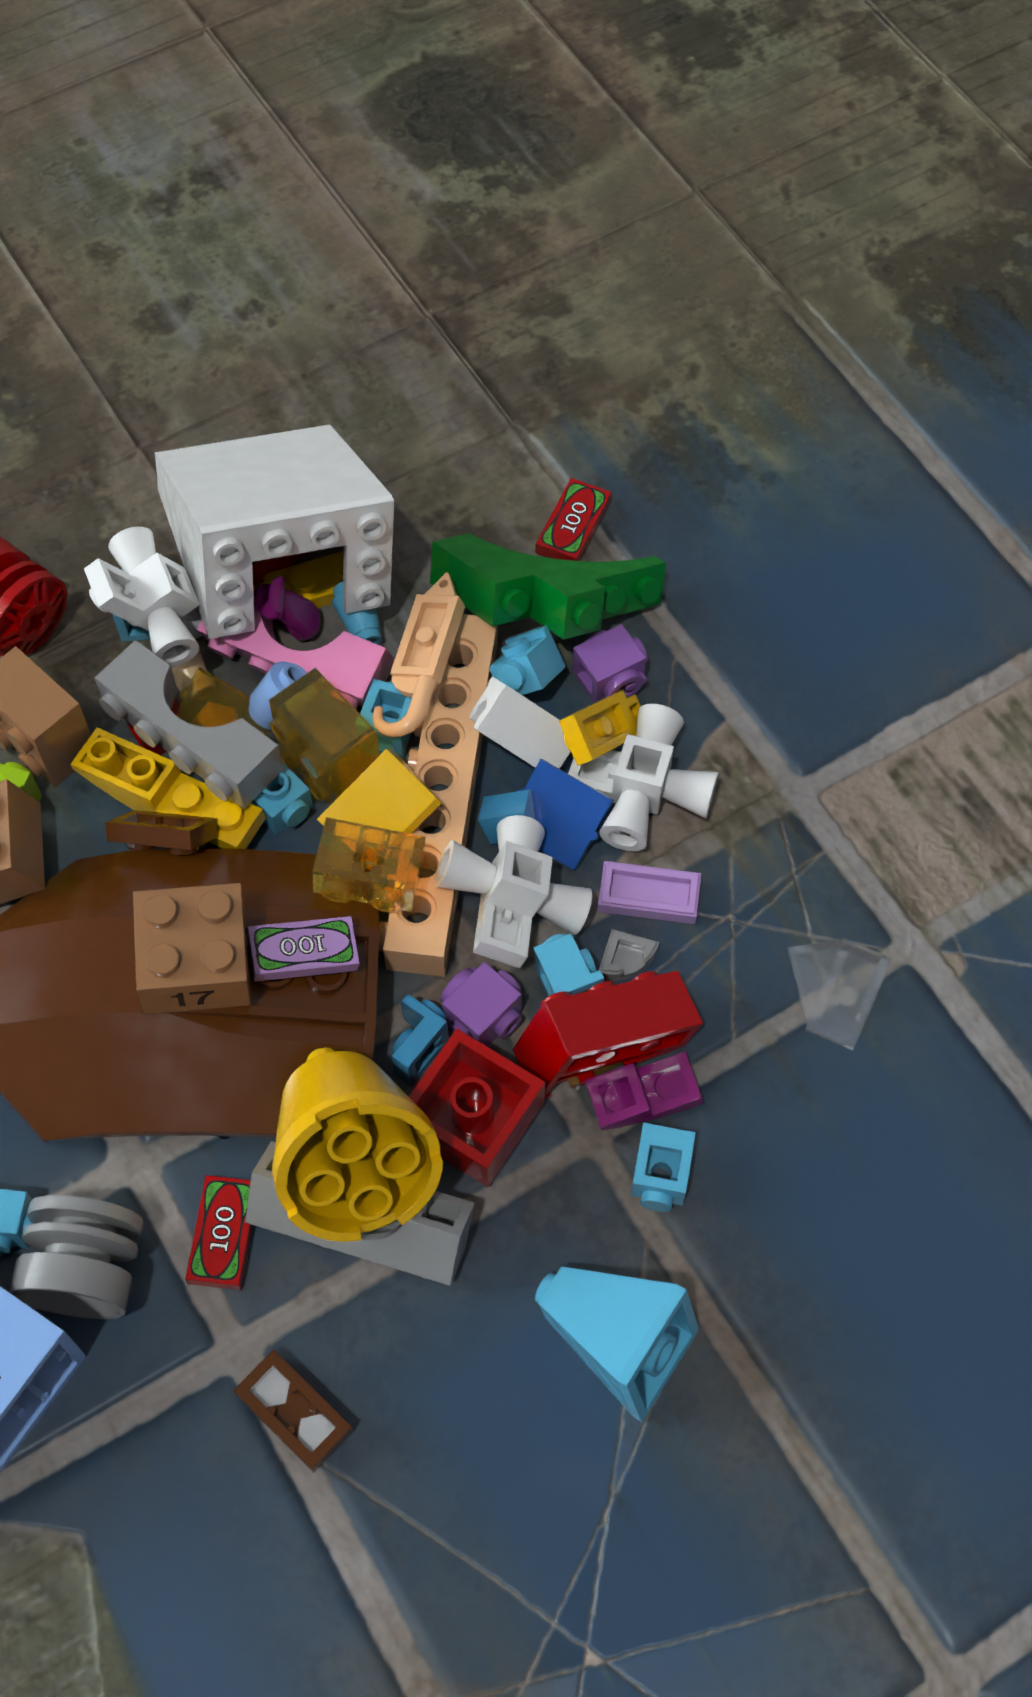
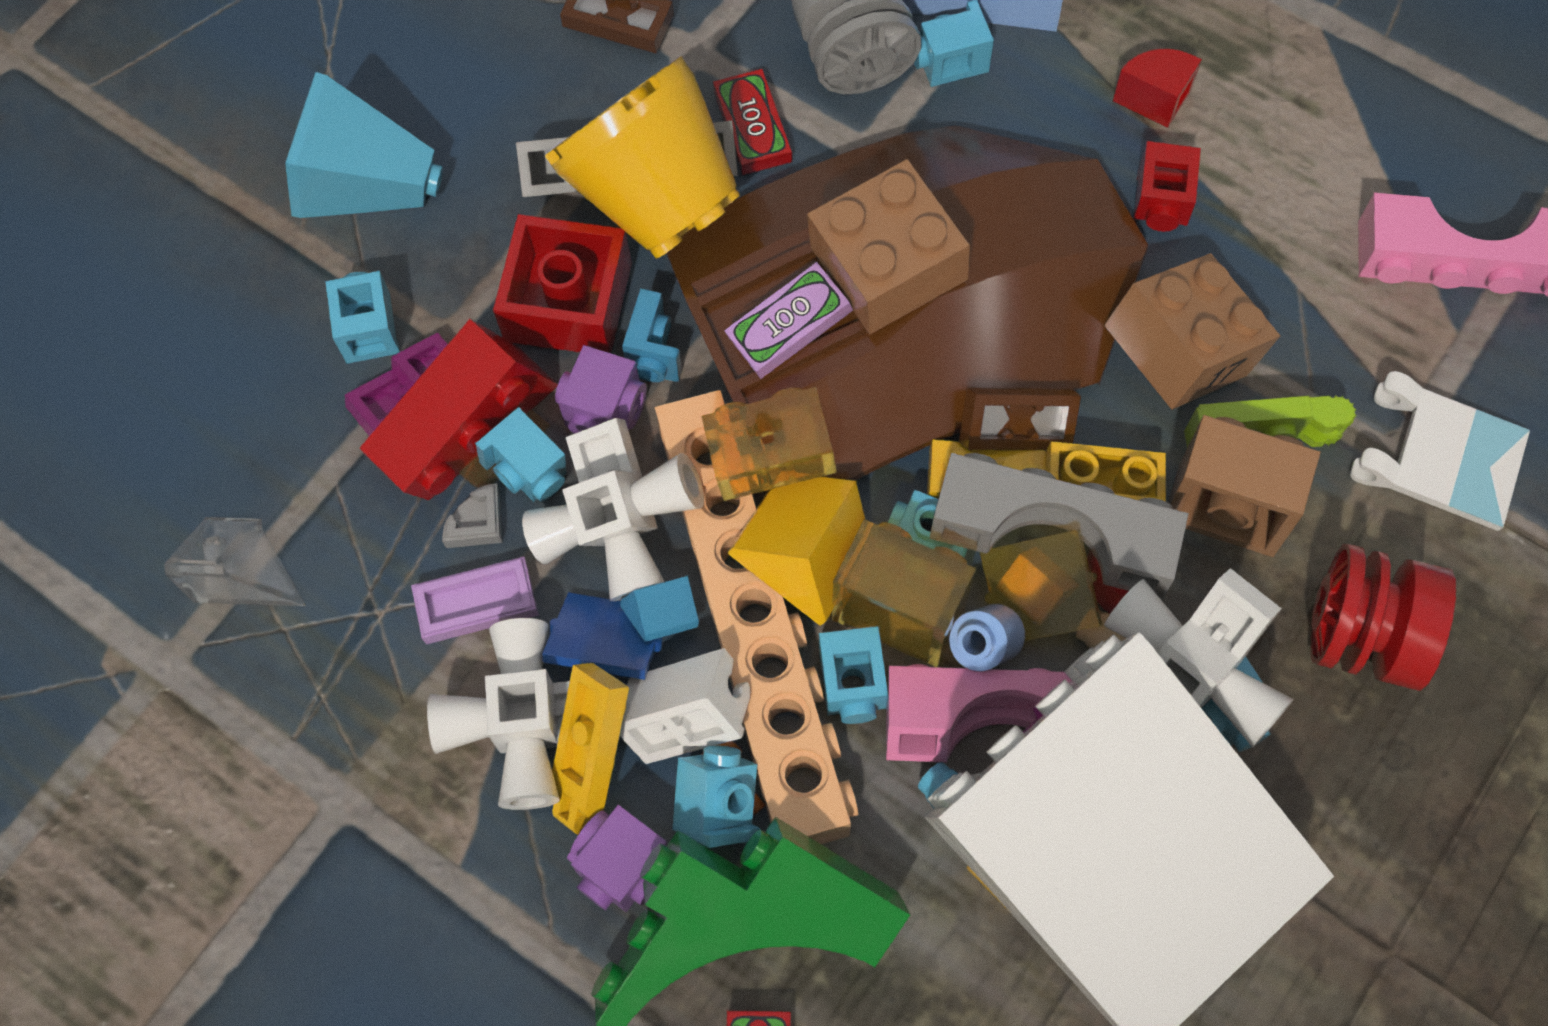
camera: 160 degrees right, 5 degrees up
(423, 654) = (839, 739): light nougat plate -> none

